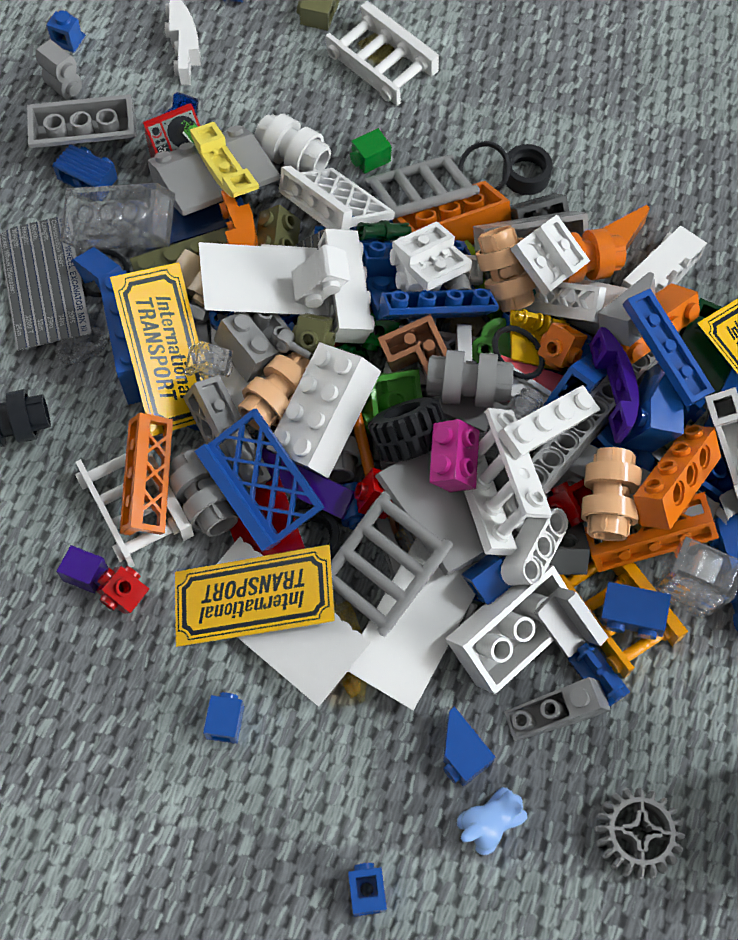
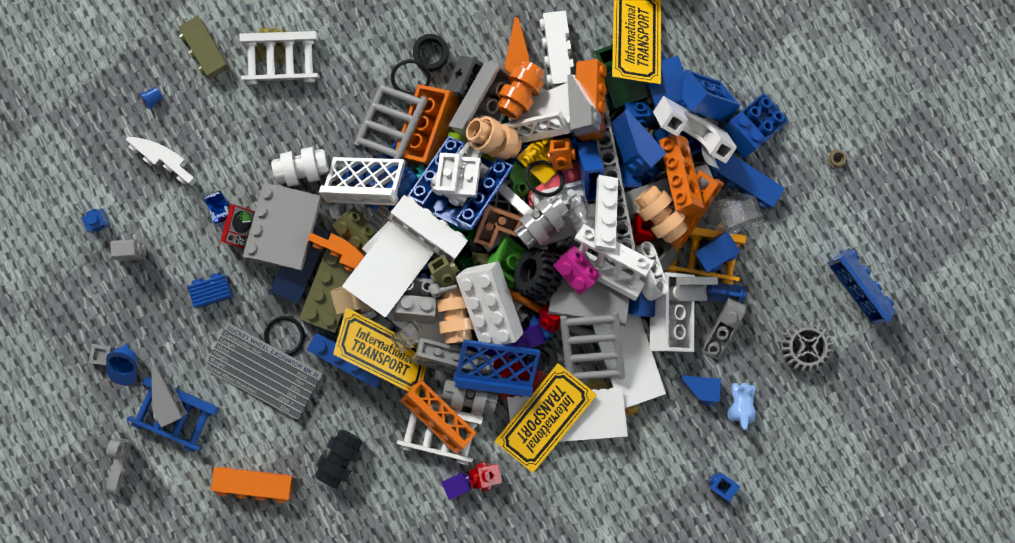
camera: 50 degrees left, 20 degrees up
(81, 121) = (180, 269): light grey slope -> none
(94, 263) = (289, 337): blue slope -> none
(118, 216) = (269, 305): clear brick -> none
(220, 161) = (291, 223): light yellow slope -> none
(224, 718) = (590, 481): blue brick -> none
(320, 276) = (419, 242): white brick -> none
(370, 151) = (341, 126): green brick -> none
(382, 231) = (411, 177): dark green pin -> none
(550, 255) = (513, 115): white slope -> none
(610, 355) = (591, 141): dark purple slope -> none
(668, 347) = (622, 119): blue plate -> none

